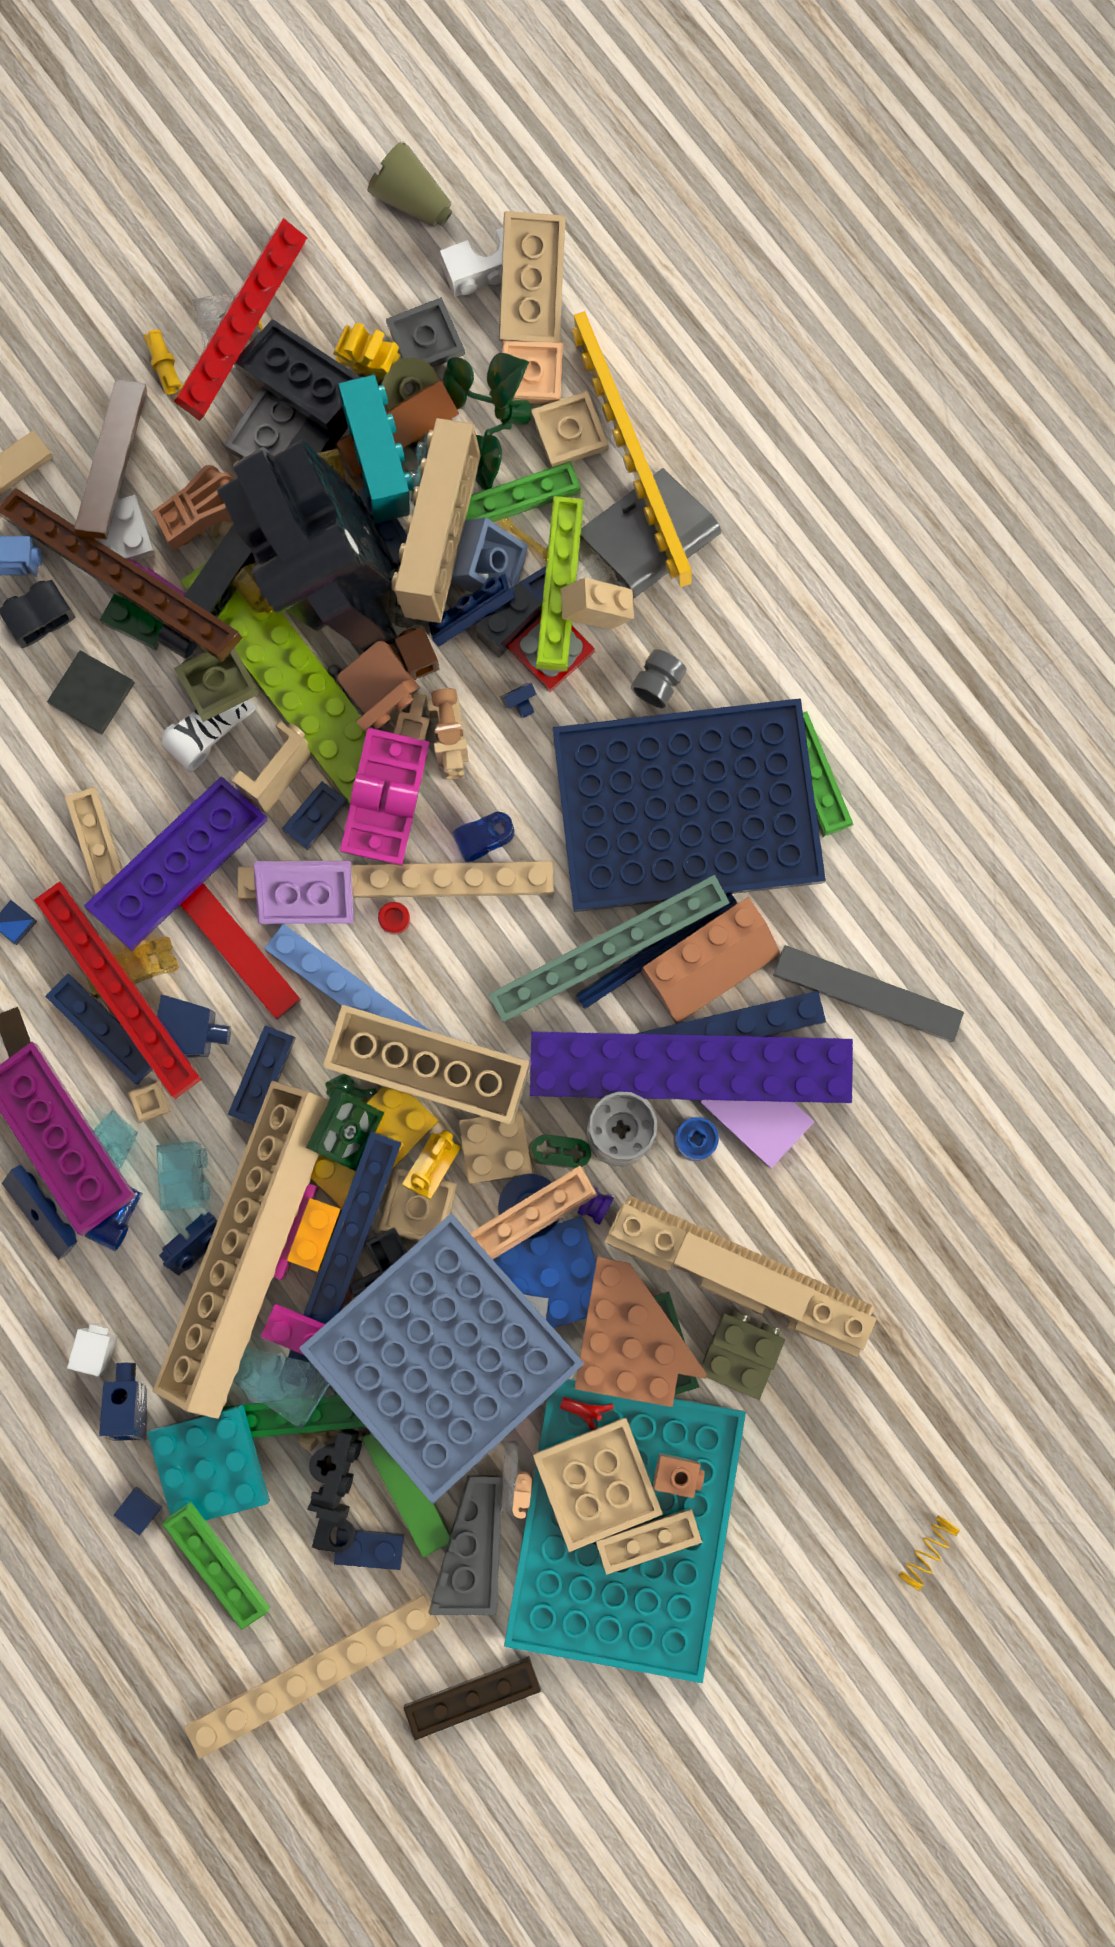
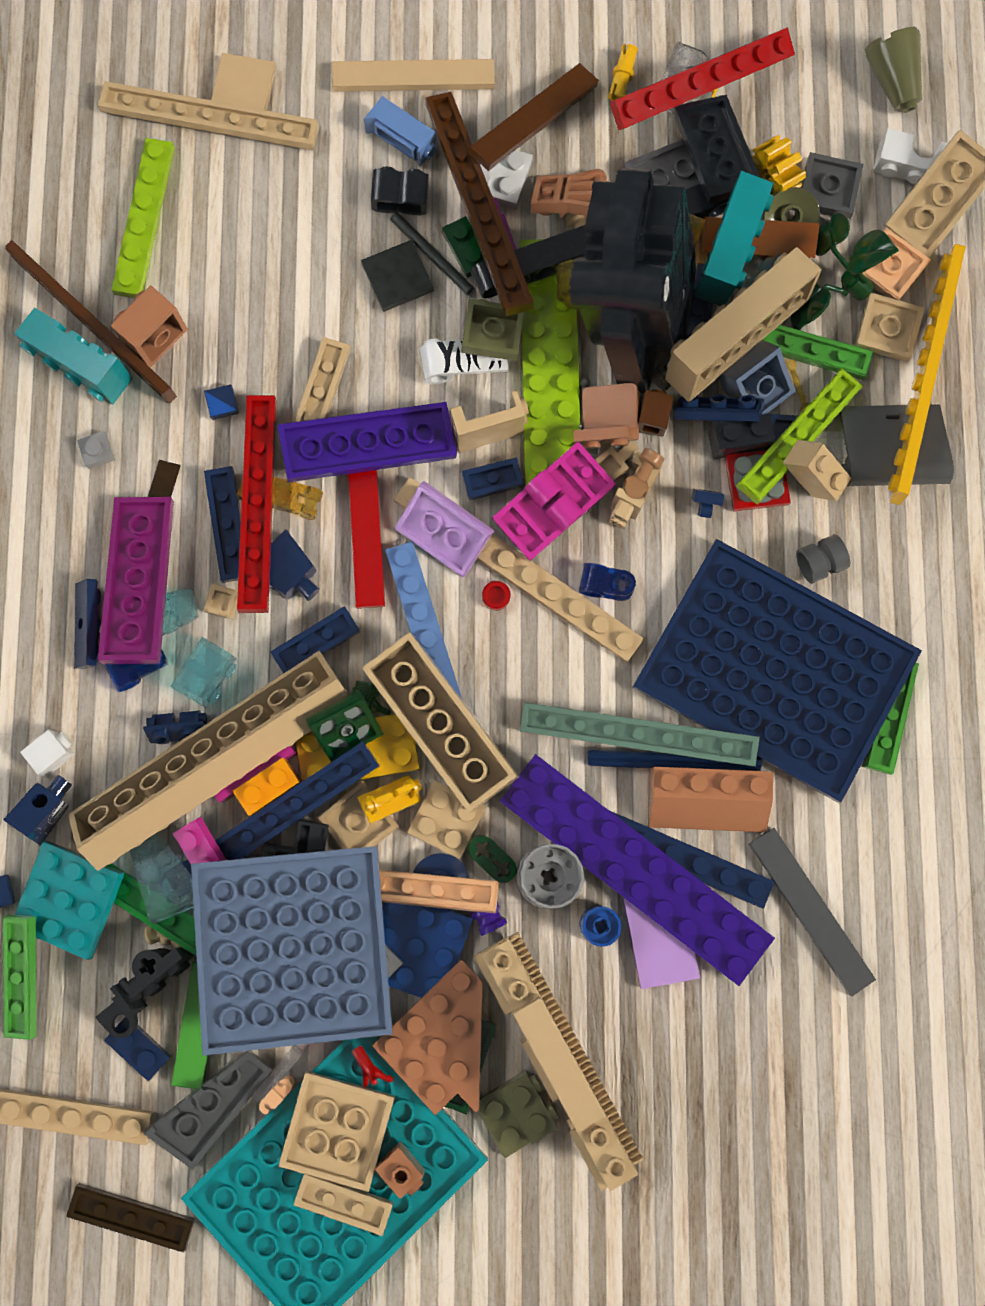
camera: 35 degrees right, 0 degrees up
(107, 649) = (432, 253): none -> pearl dark grey bar

